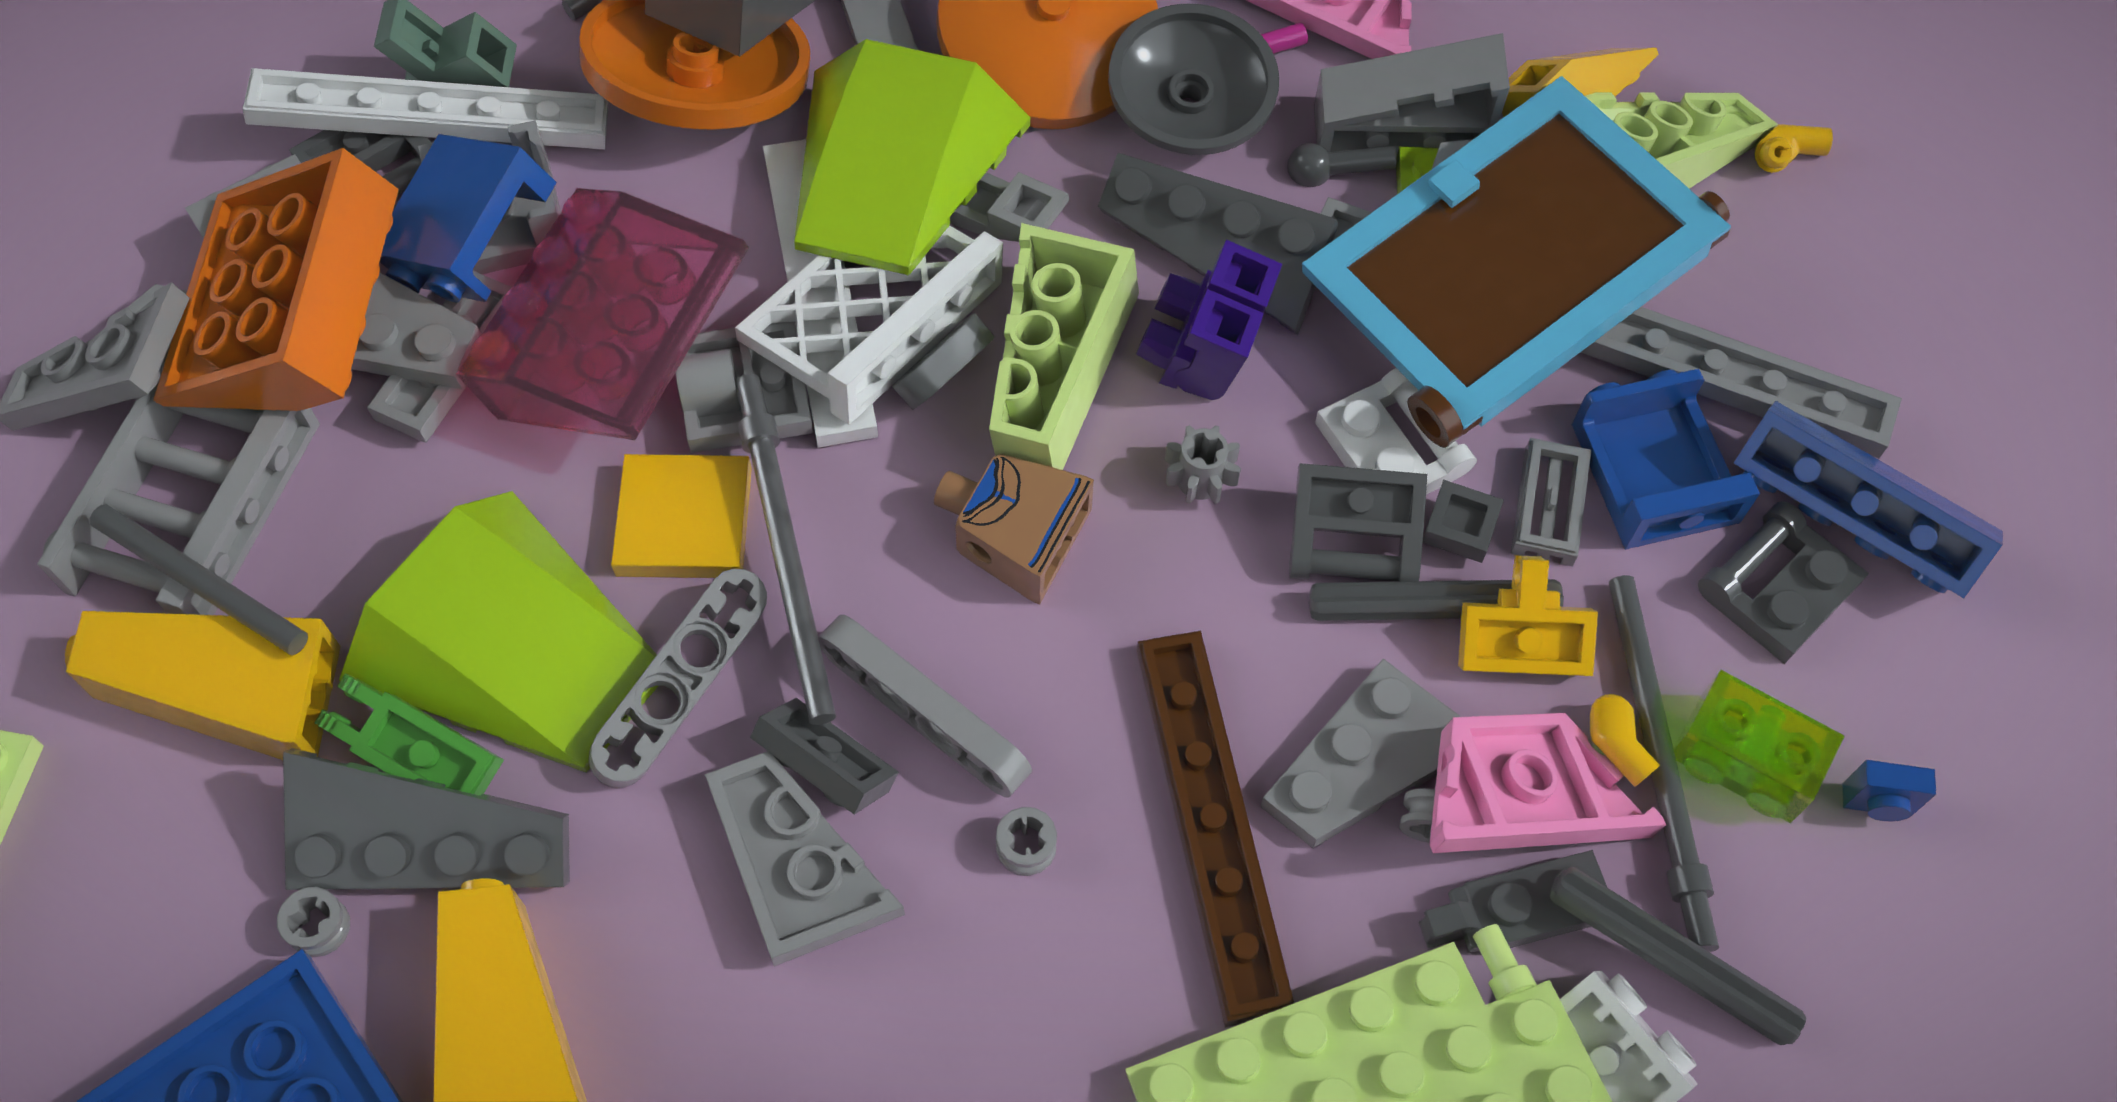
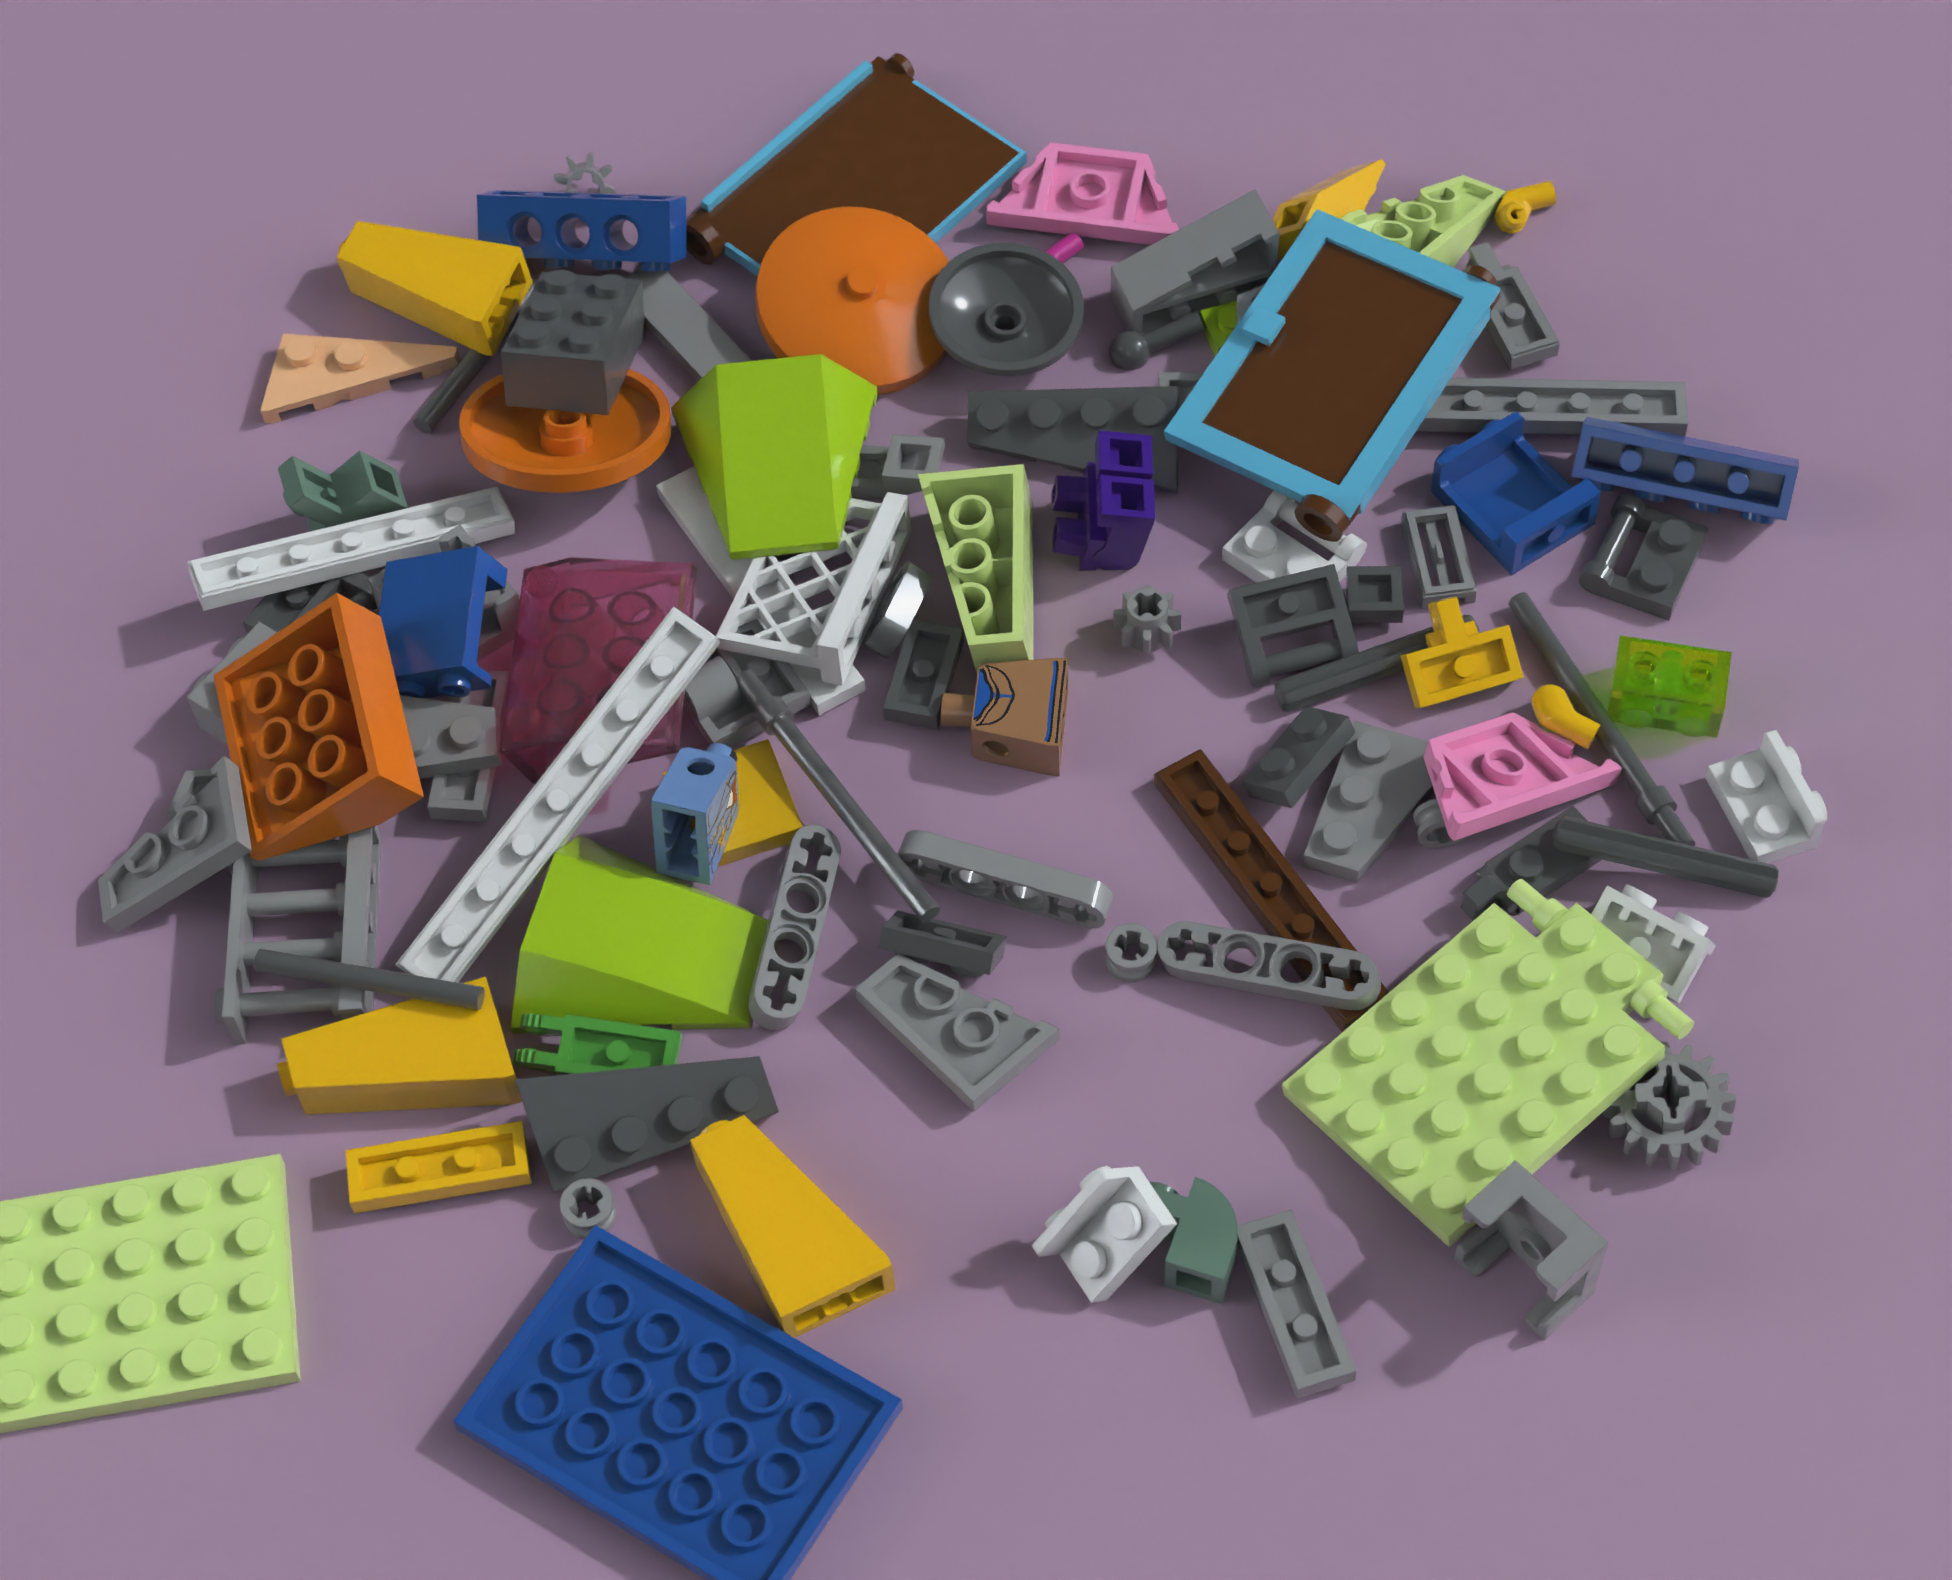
camera: 15 degrees left, 5 degrees down
(179, 813) = (438, 1167): none -> yellow plate
(484, 452) = (560, 800): none -> white tile
(621, 511) = (701, 788): none -> medium blue torso
(939, 441) = (923, 674): none -> dark grey plate
(1172, 912) = (1270, 958): none -> light grey beam
(1304, 679) = (1298, 756): none -> dark grey plate
(1738, 267) = (1516, 319): none -> light grey hinge
(1825, 928) = (1769, 801): none -> white bracket
(1888, 790) = (1780, 683): blue plate -> none

